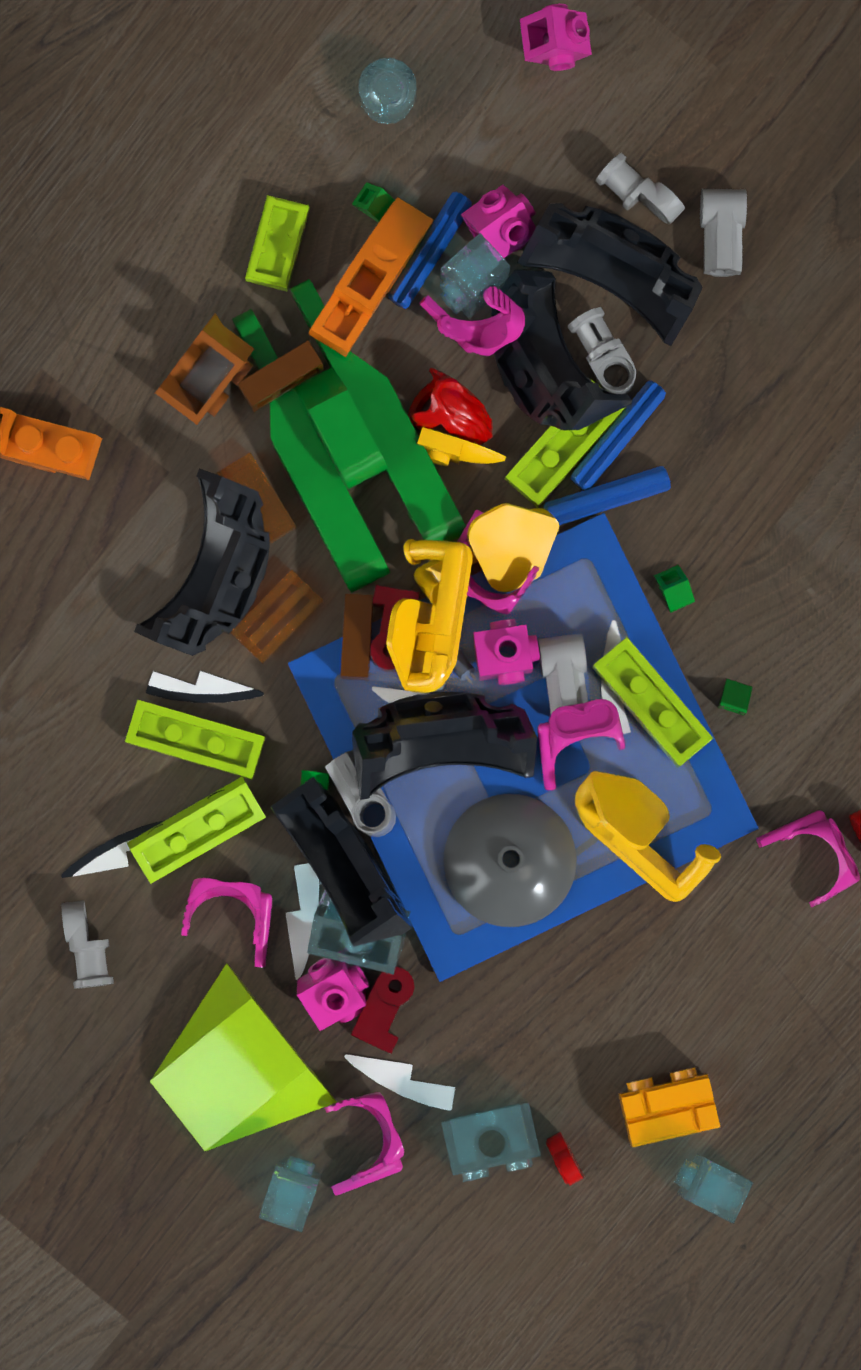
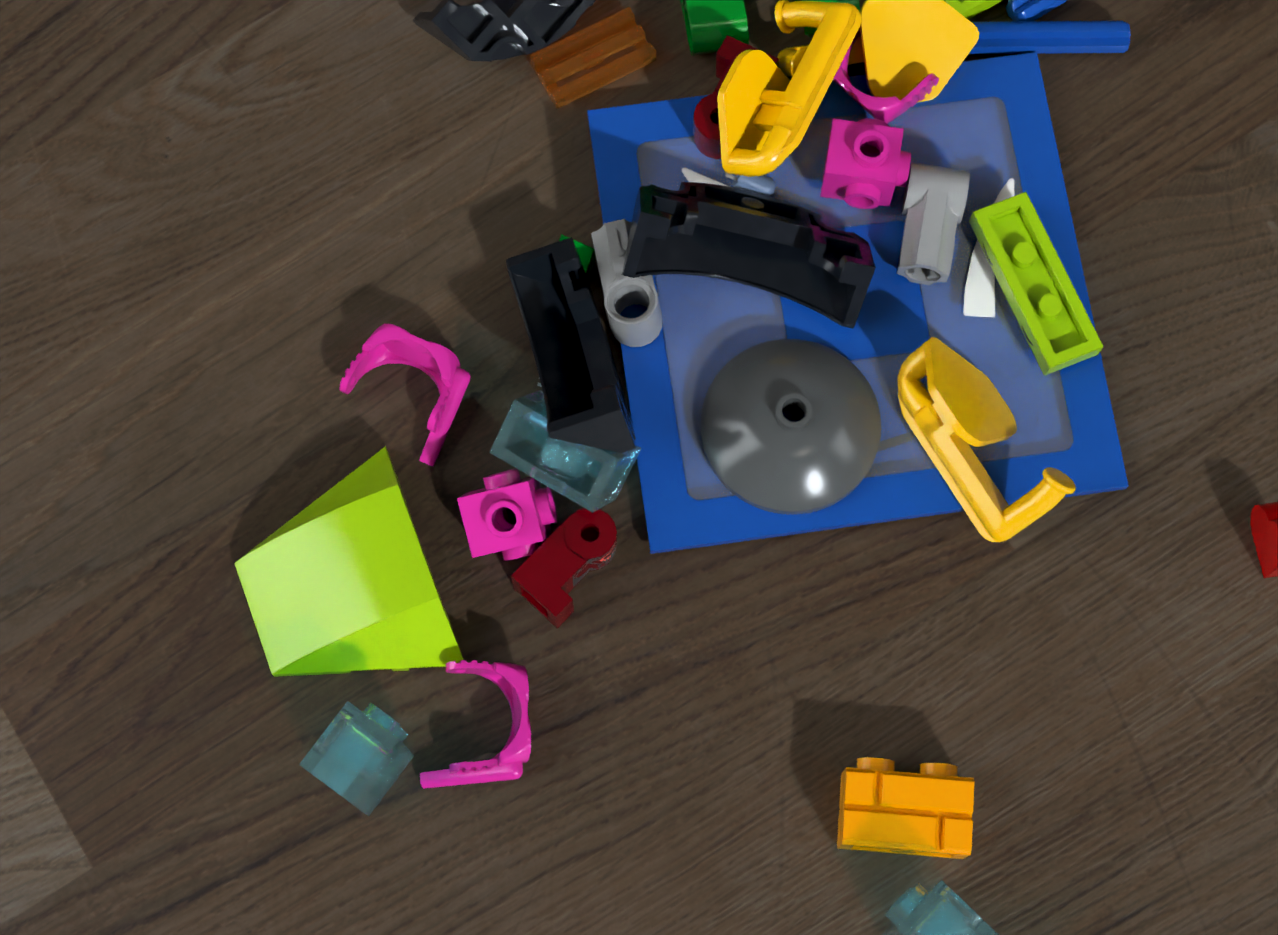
camera: 20 degrees right, 10 degrees down
(89, 955) = (216, 373): light grey connector -> none
(108, 855) = (294, 273): sticker -> none
(195, 739) = (442, 165): lime plate -> none
(196, 830) = (403, 269): lime plate -> none
(207, 689) = (479, 118): sticker -> none
(301, 921) = (521, 382): white sticker -> none
(357, 637) = (685, 89): reddish brown piece -> none
(397, 1078) = (555, 662): white sticker -> none
(464, 668) = (802, 173): sand blue piece -> none
(511, 1121) = (621, 753): clear light blue brick -> none
(564, 1159) = (743, 836): red tile -> none
(573, 724) = (926, 266): dark pink helmet -> none
(675, 588) = (1099, 170): green piece -> none
(735, 697) = (1139, 322): green piece -> none
(819, 825) = (1212, 509): dark pink helmet -> none

